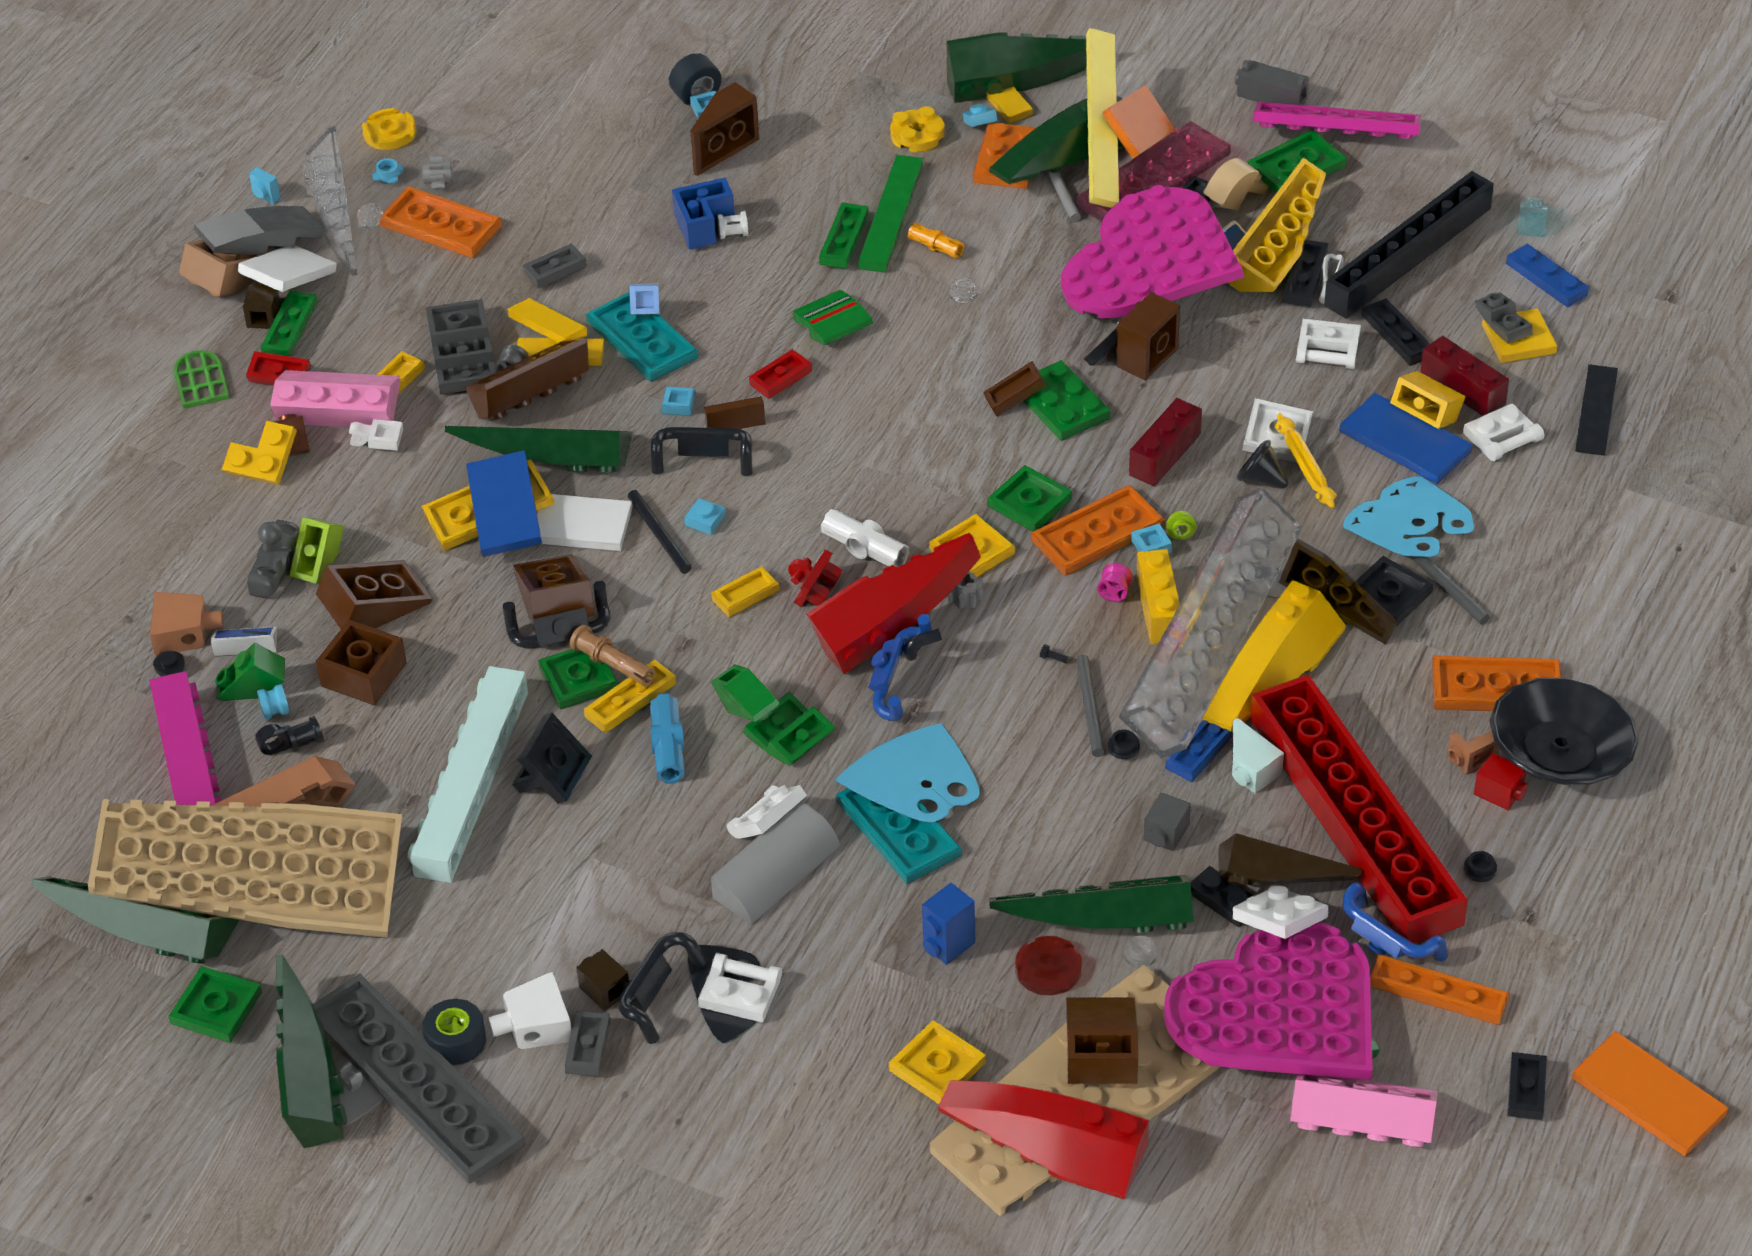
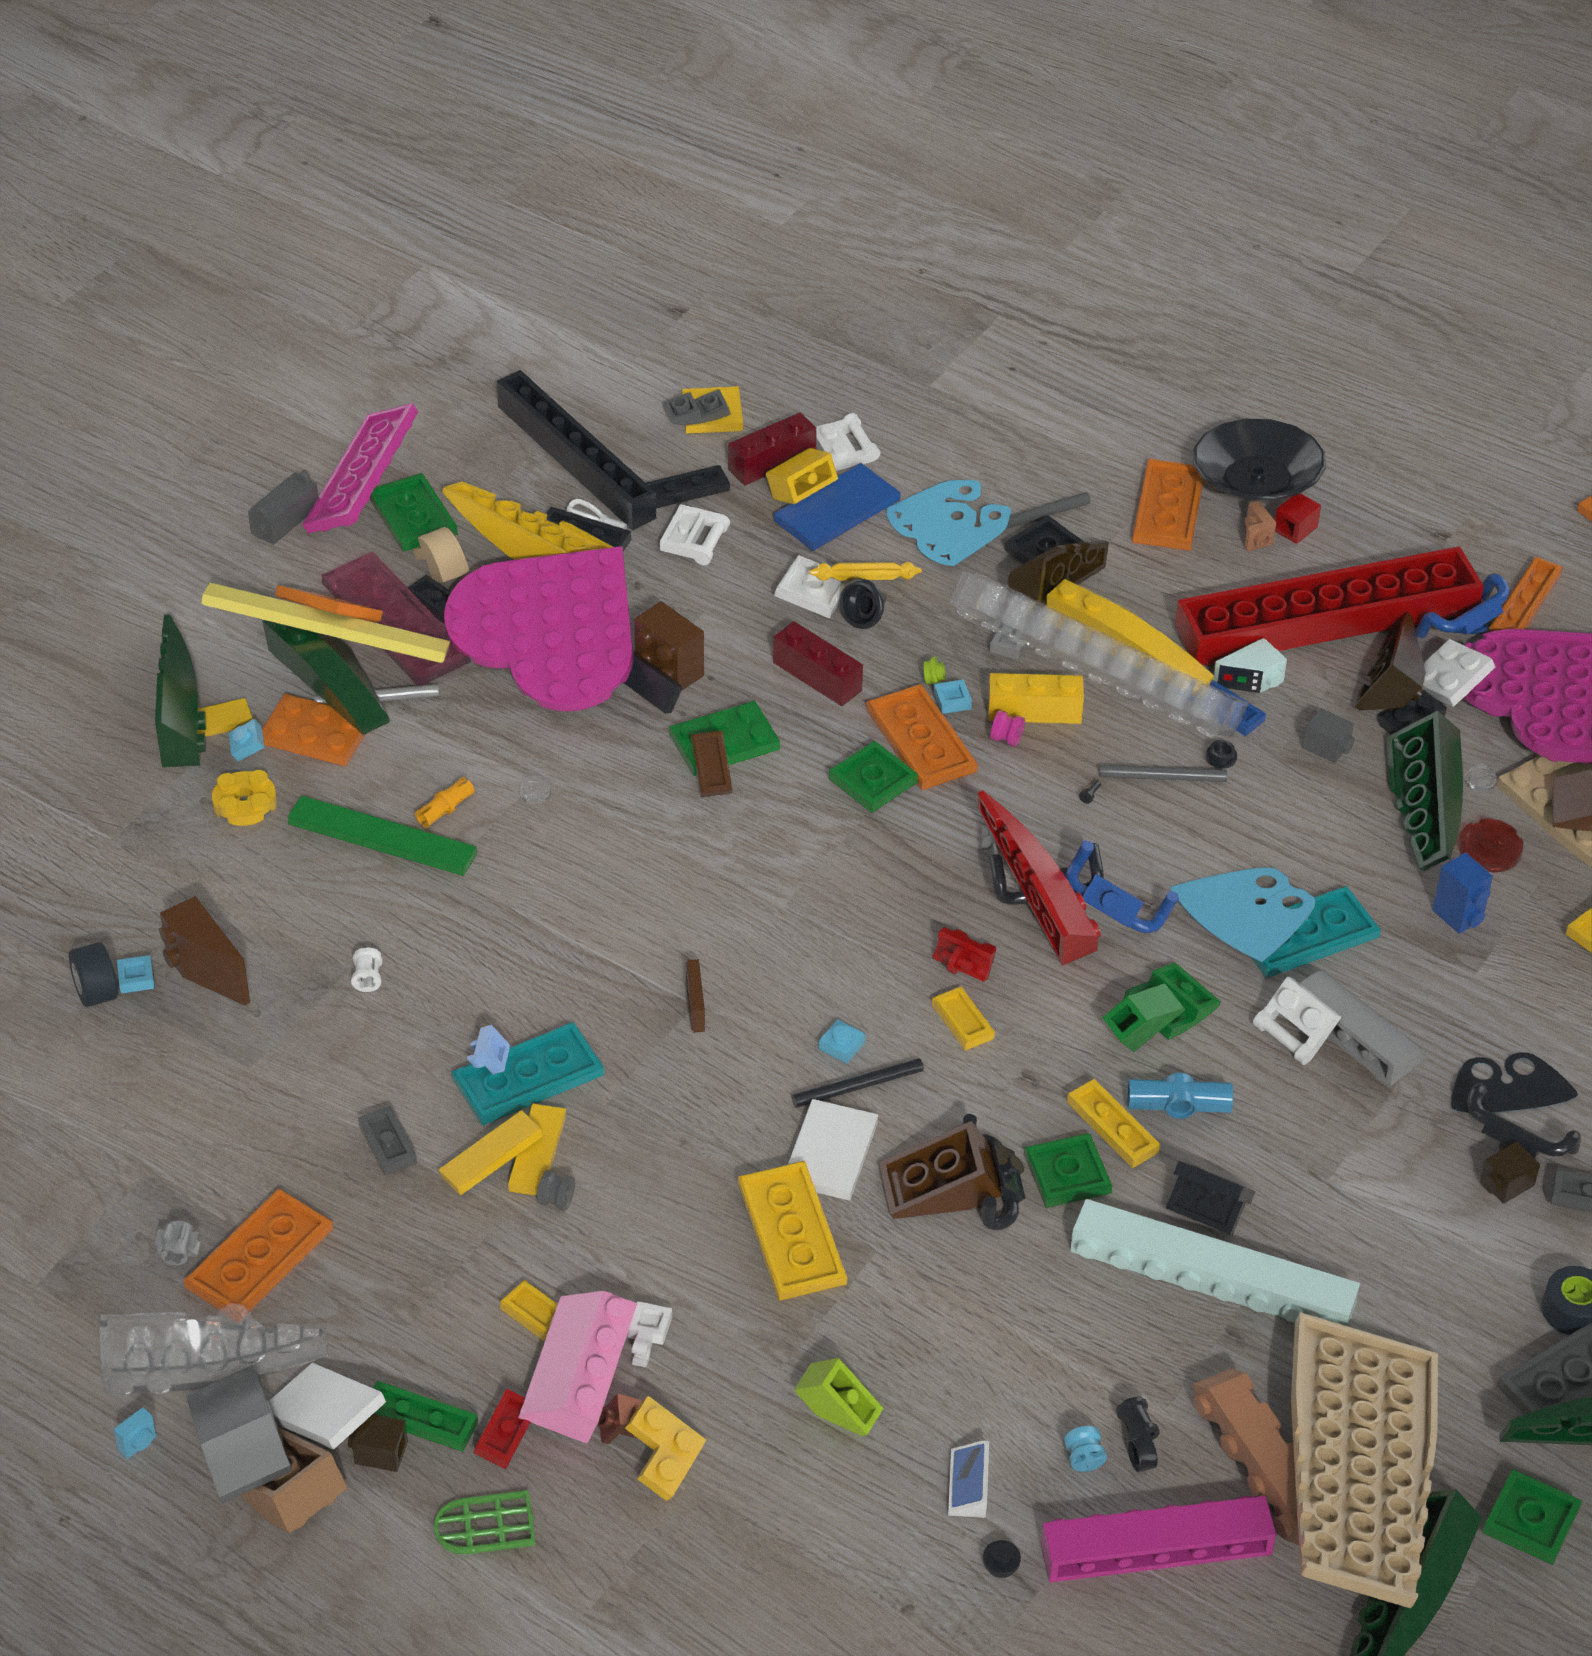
camera: 85 degrees left, 0 degrees up
(181, 622) = (940, 1541): nougat torso -> none
(249, 672) = (1042, 1471): green slope -> none
(273, 557) = (846, 1439): dark grey piece -> none
(361, 662) = (1043, 1353): reddish brown brick -> none
(371, 592) = (925, 1347): reddish brown slope -> none
(387, 171) = (144, 1294): medium azure plate -> none
(389, 129) = (52, 1299): yellow tile -> none
(460, 344) = (505, 1242): dark grey slope -> none
(503, 503) = (810, 1204): blue tile -> none
(529, 378) = (604, 1162): reddish brown slope -> none
(534, 1014) = (1552, 1229): white torso -> none
(553, 446) = (709, 1157): dark green wedge -> none
(602, 650) = (1059, 1131): medium nougat pin -> none
(678, 401) = (649, 1049): medium azure tile -> none
(698, 208) = (348, 993): blue brick -> none
(703, 443) = (736, 1021): black piece -> none
(737, 996) = (1526, 1074): white plate -> none
(780, 374) = (633, 952): red plate -> none
(832, 317) = (549, 900): green slope -> none
(843, 235) = (414, 875): green plate -> none
(864, 539) = (910, 908): white piece -> none
(990, 543) = (929, 832): yellow tile -> none
(1480, 866) = (1390, 548): black plate -> none
(1533, 217) = (547, 364): clear light blue bracket -> none
(1547, 275) = (630, 377): blue plate -> none
(1596, 410) = (826, 380): black tile -> none

